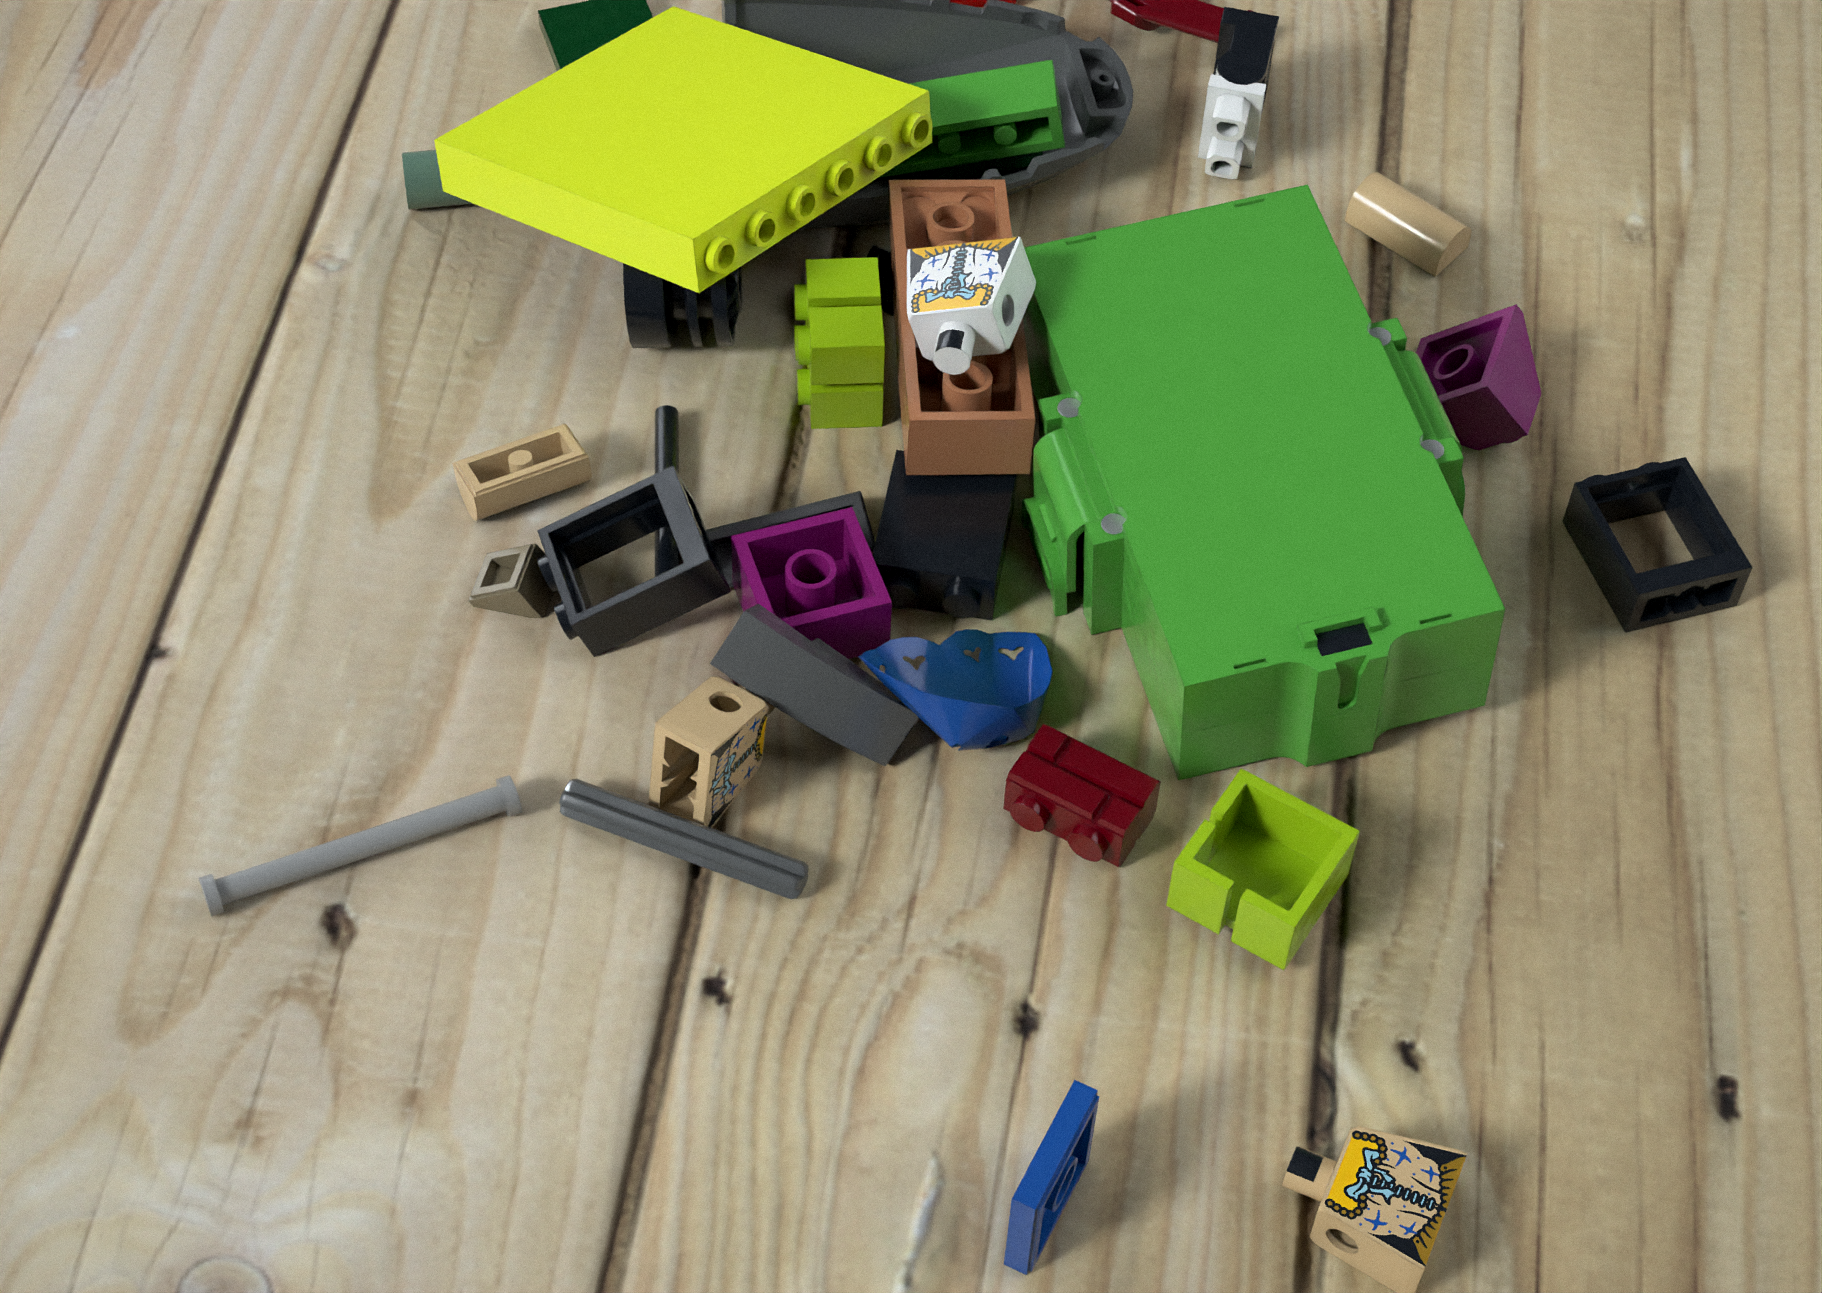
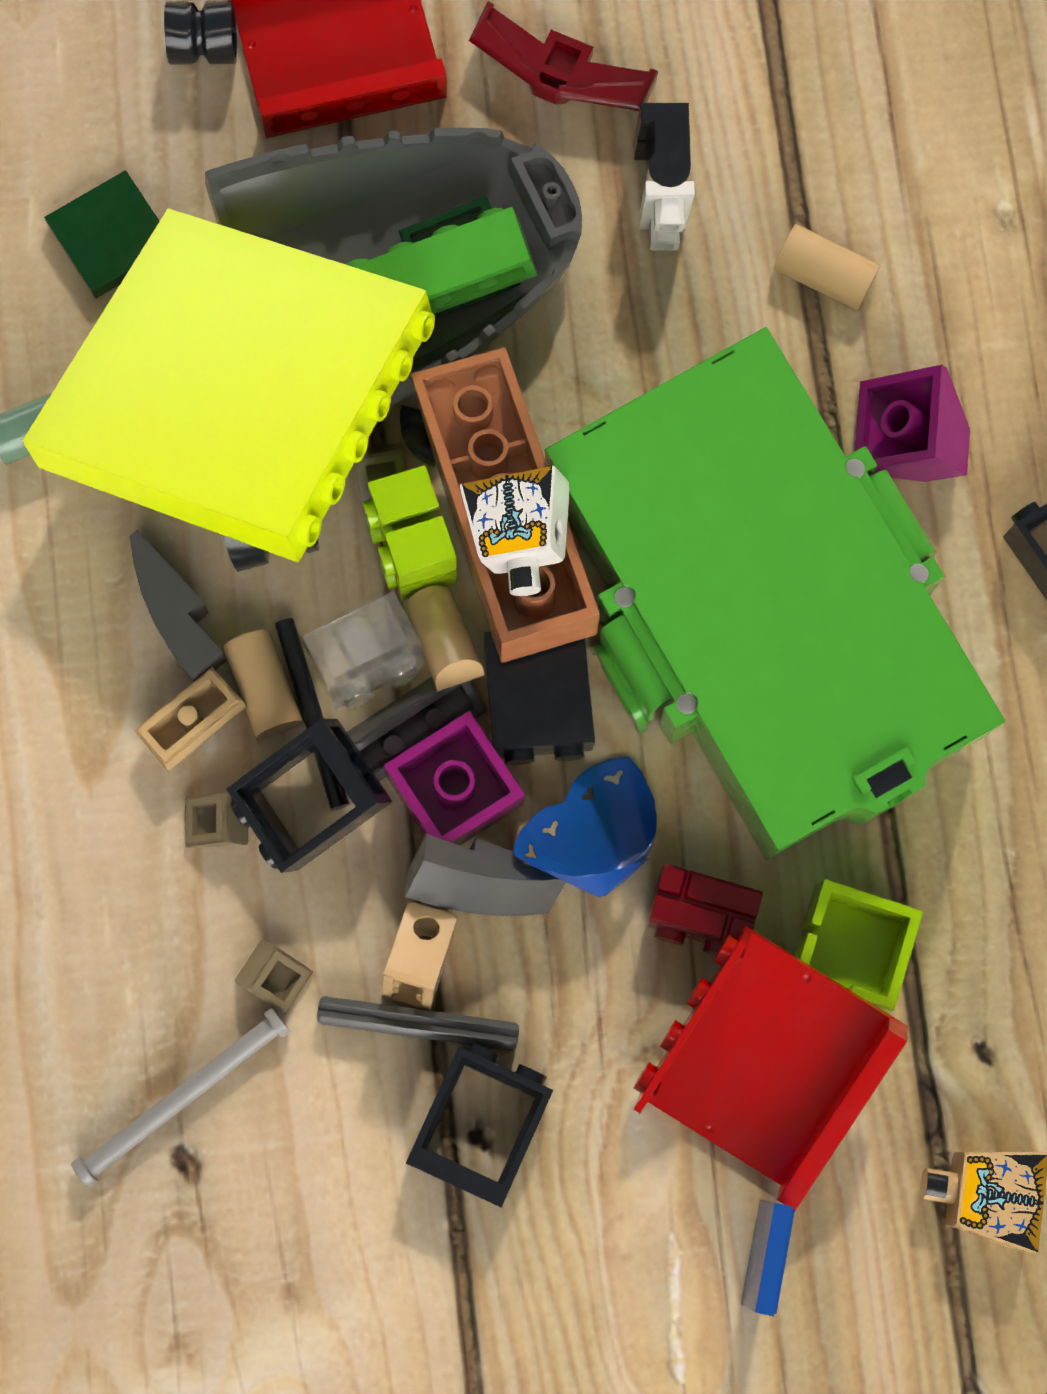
camera: 20 degrees left, 25 degrees up
(525, 751) = (273, 976): none -> dark tan slope
(545, 364) = (174, 610): none -> dark grey slope
(617, 446) = (262, 683): none -> tan brick
(683, 1007) = (523, 1080): none -> black window
(748, 436) = (365, 652): none -> clear brick
(847, 453) = (443, 637): none -> tan brick
(1114, 957) = (772, 1062): none -> red panel

